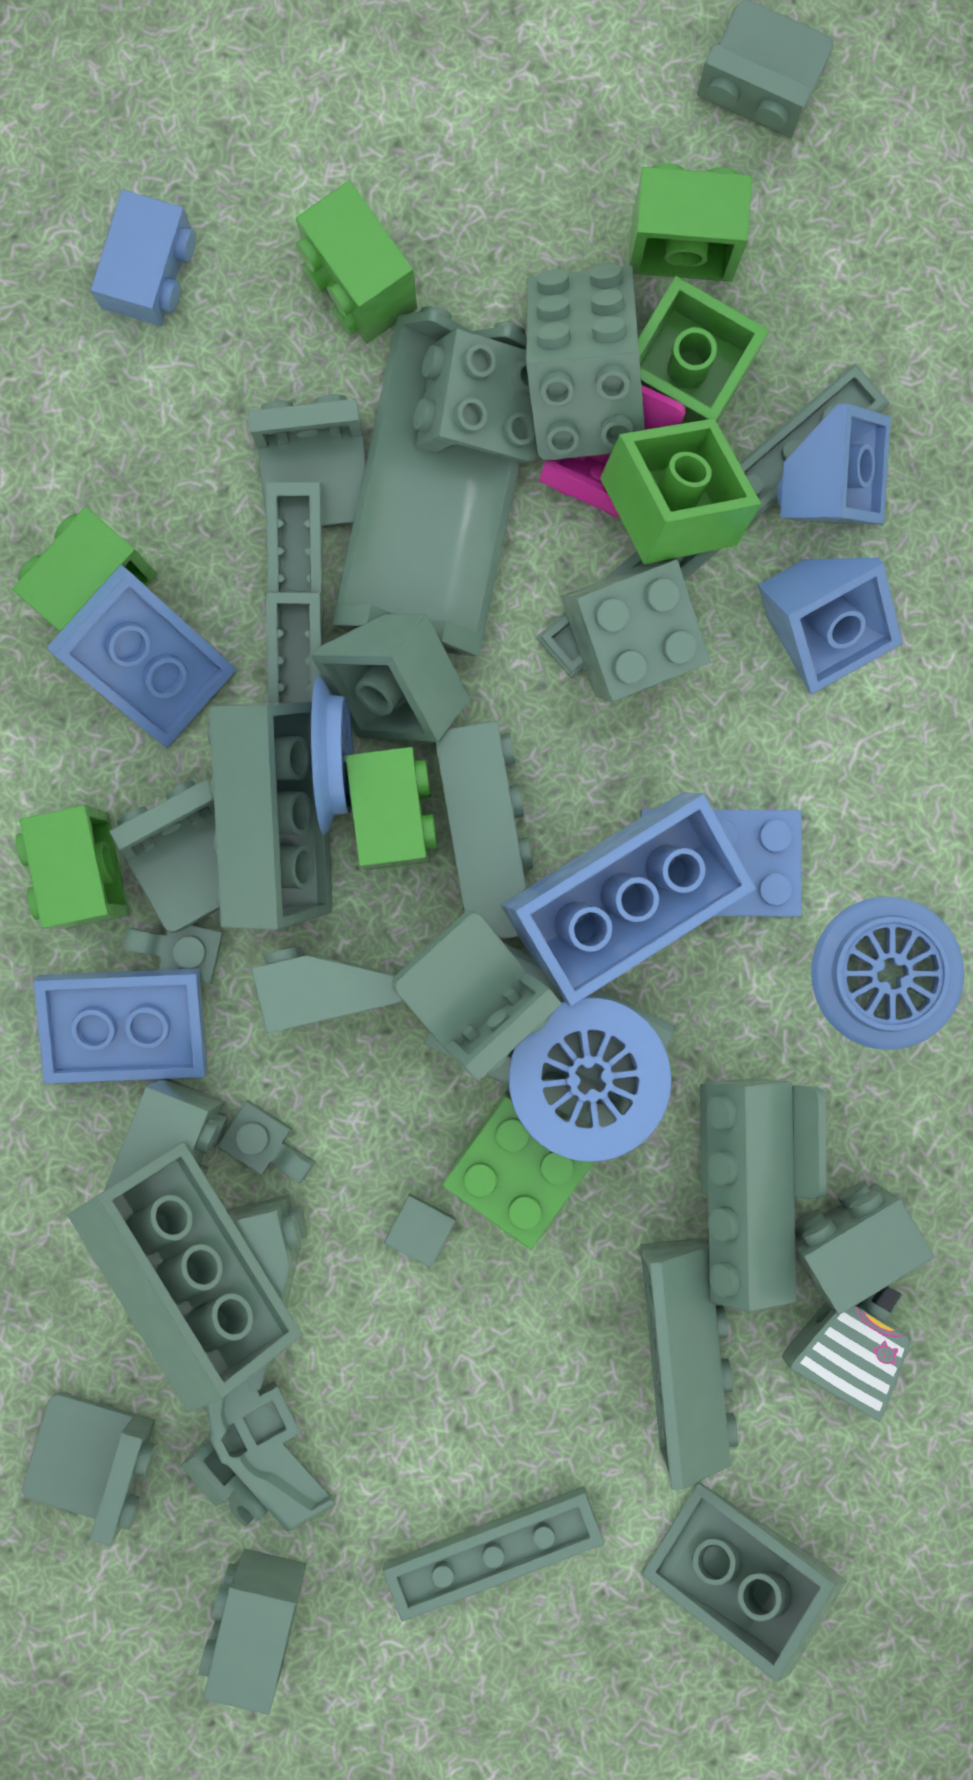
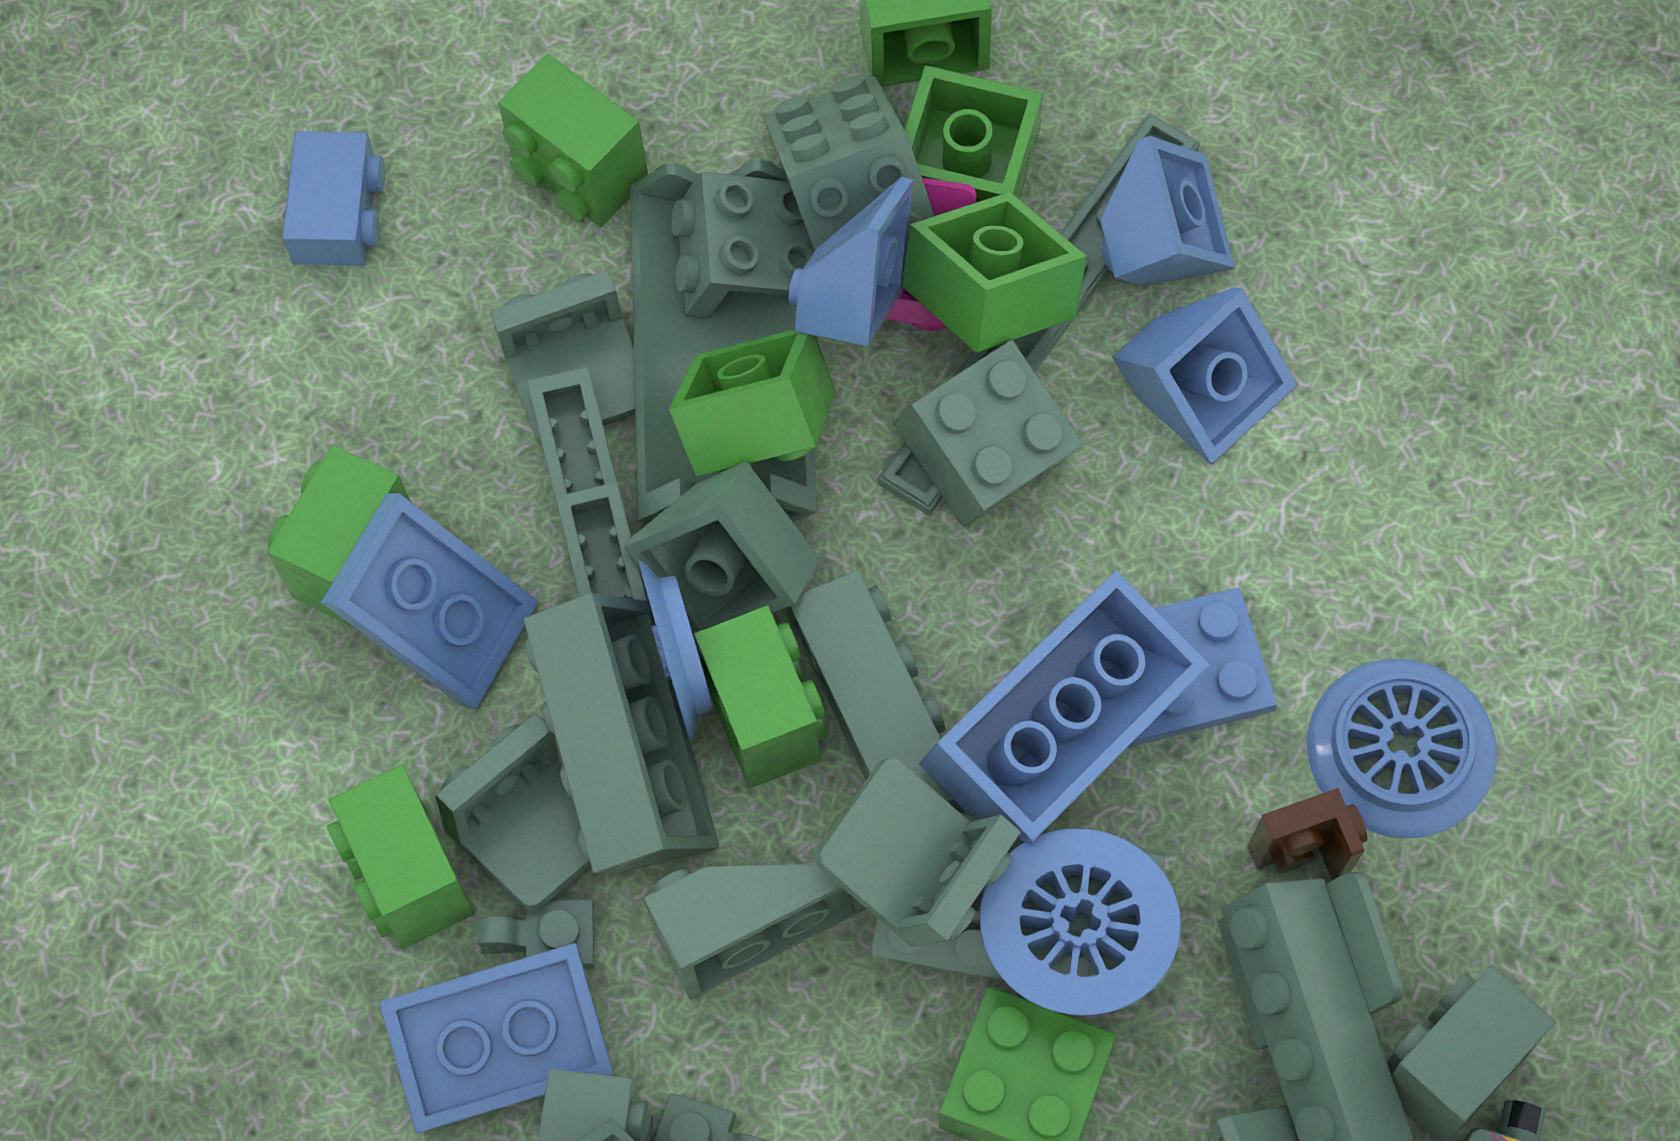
camera: 10 degrees left, 20 degrees down
(447, 556) = (753, 402): none -> bright green brick
(561, 465) = (856, 272): none -> medium blue slope
(794, 1039) = (1319, 822): none -> reddish brown bracket

